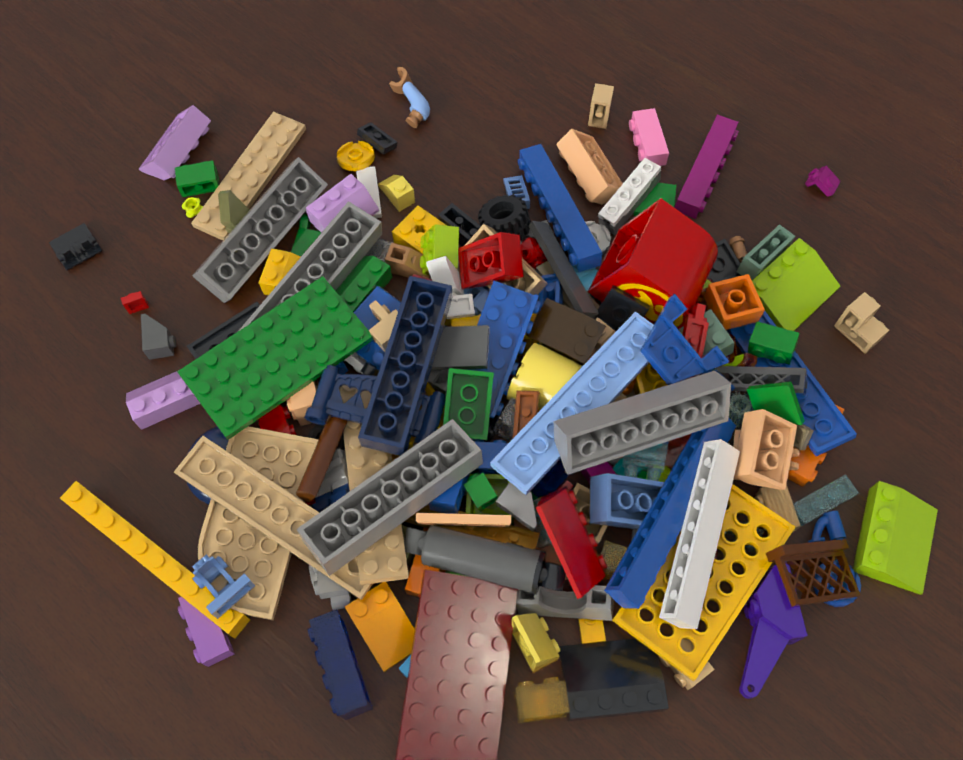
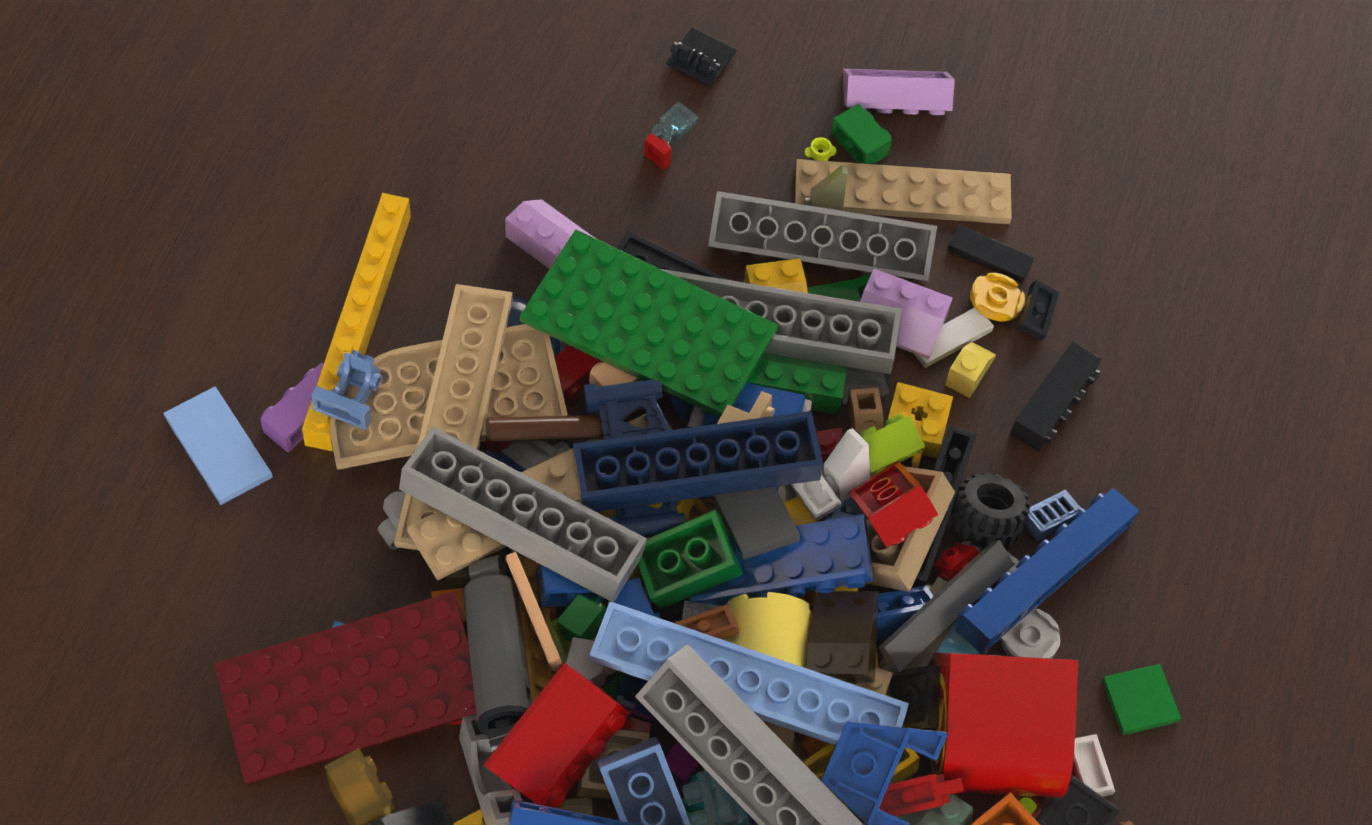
camera: 60 degrees right, 5 degrees down
(118, 282) = (676, 122): none -> clear light blue plate
(156, 339) = (622, 195): dark grey slope -> none
(201, 706) = (218, 445): none -> light blue tile
(323, 146) = (991, 253): none -> black tile
(340, 665) = (314, 559): clear blue brick -> none
(383, 625) = (382, 582): light orange slope -> none
(419, 105) = (1120, 338): piece -> none
(441, 154) = (1056, 396): none -> black brick
(534, 641) = (427, 756): light yellow slope -> none
(589, 166) = (1145, 594): light nougat slope -> none
(600, 106) = (1249, 565): tan brick -> none
(630, 195) = (1121, 657): white piece -> none
(649, 136) = (1238, 653): bright pink brick -> none
(706, 166) = (1236, 749): magenta brick -> none

